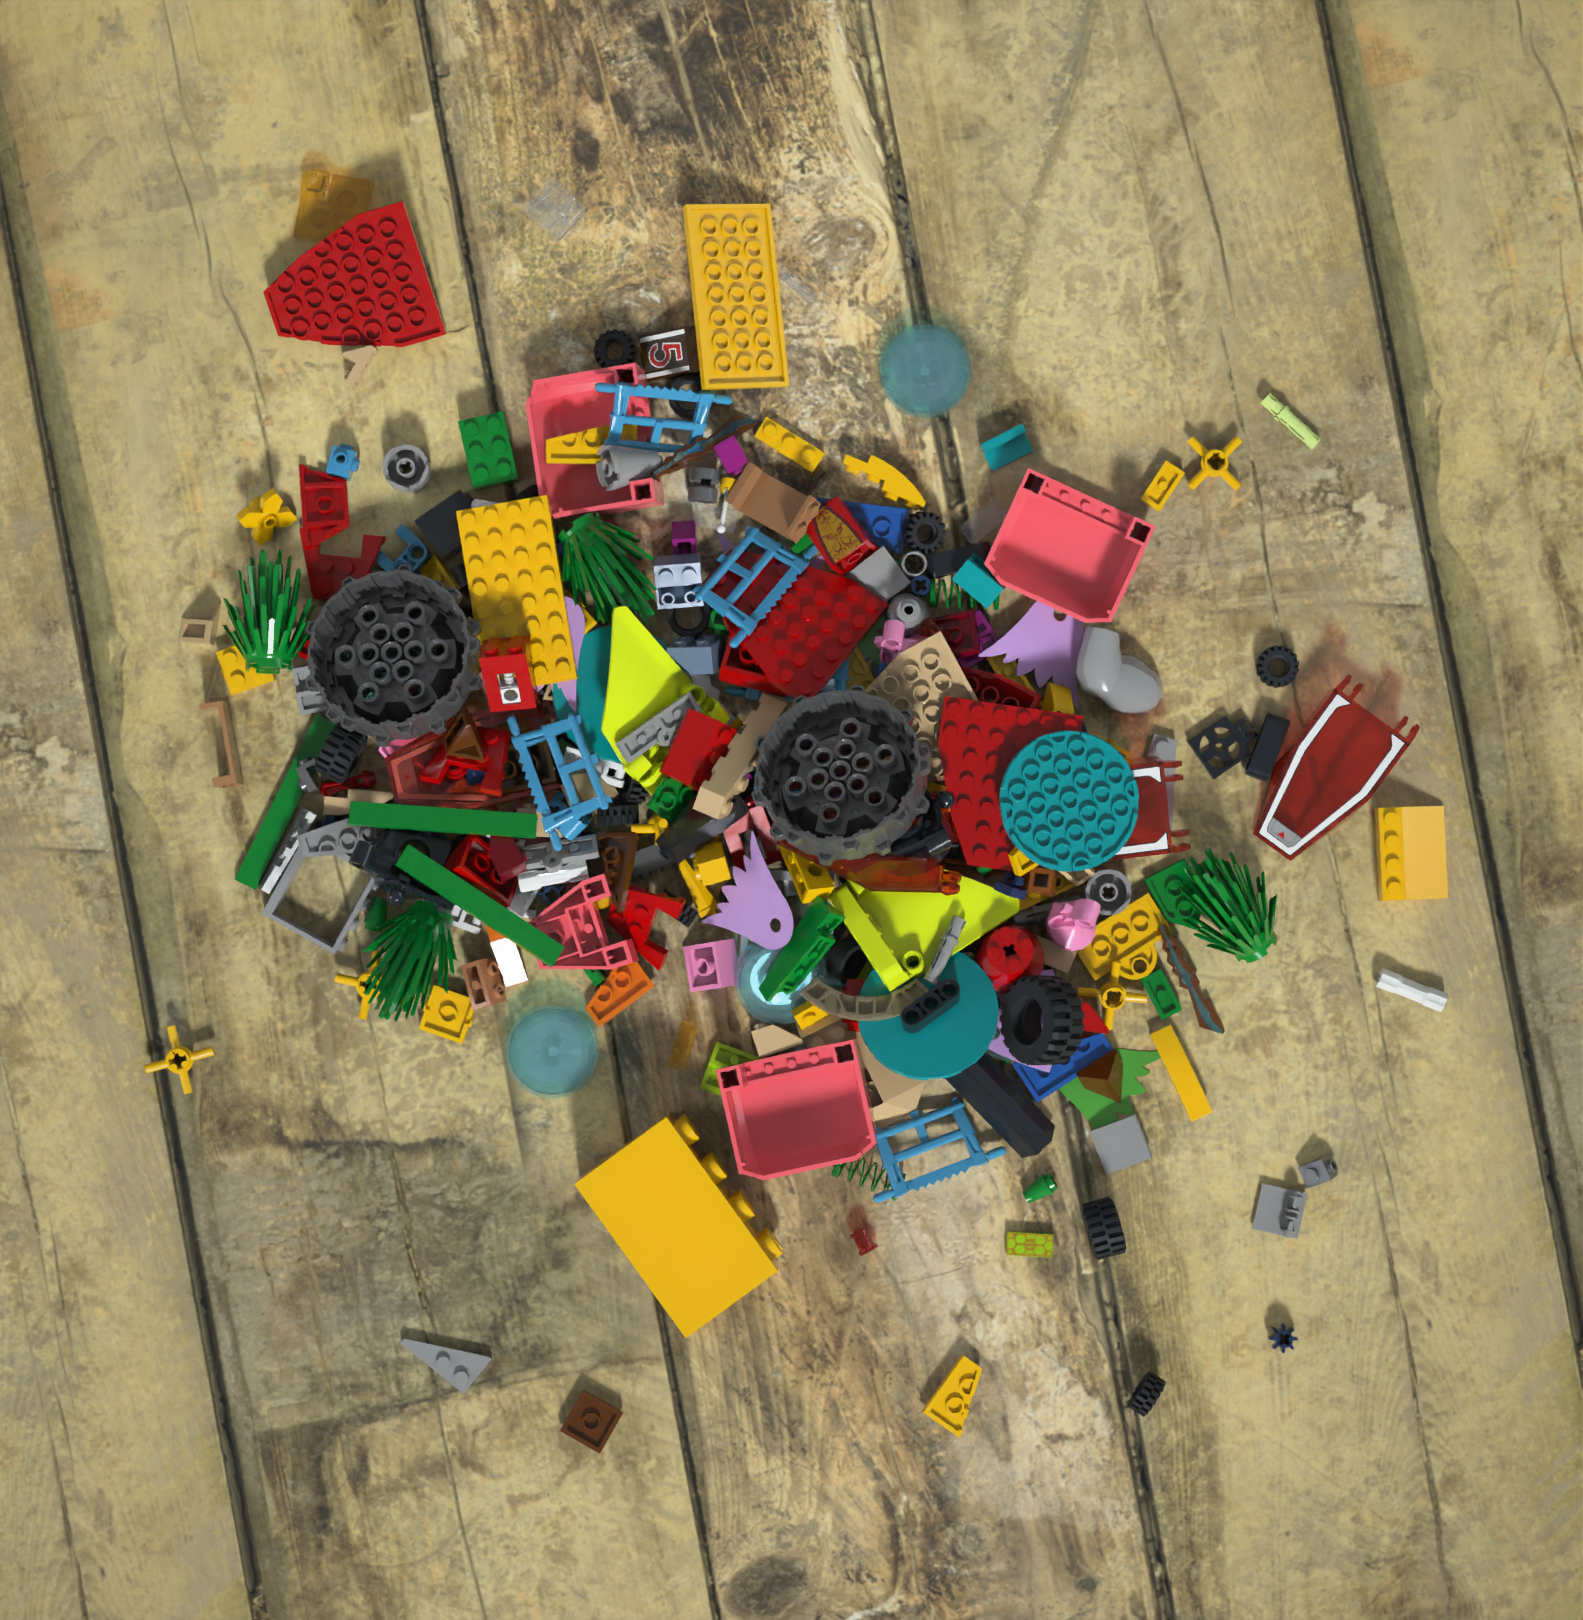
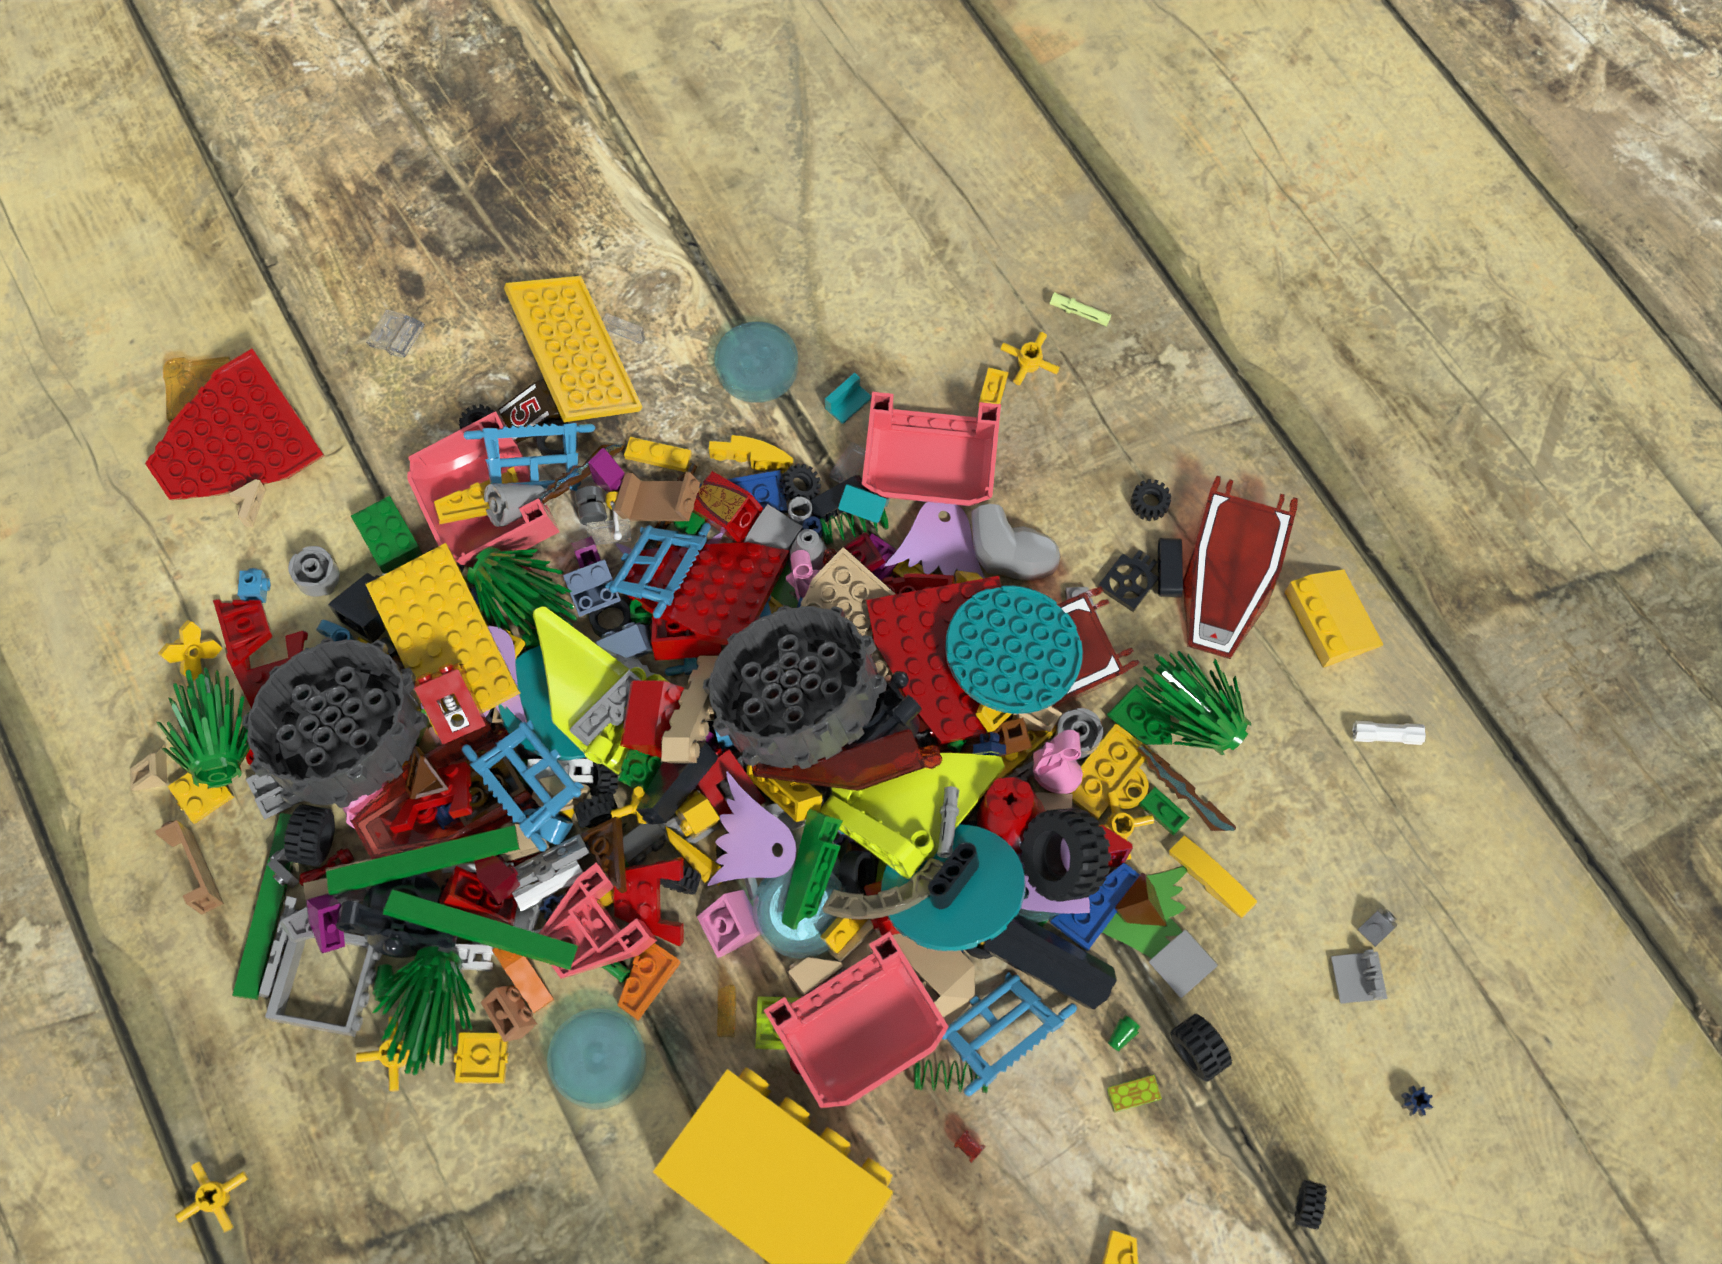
camera: 20 degrees left, 20 degrees down
(338, 847) = (323, 916): none -> magenta slope

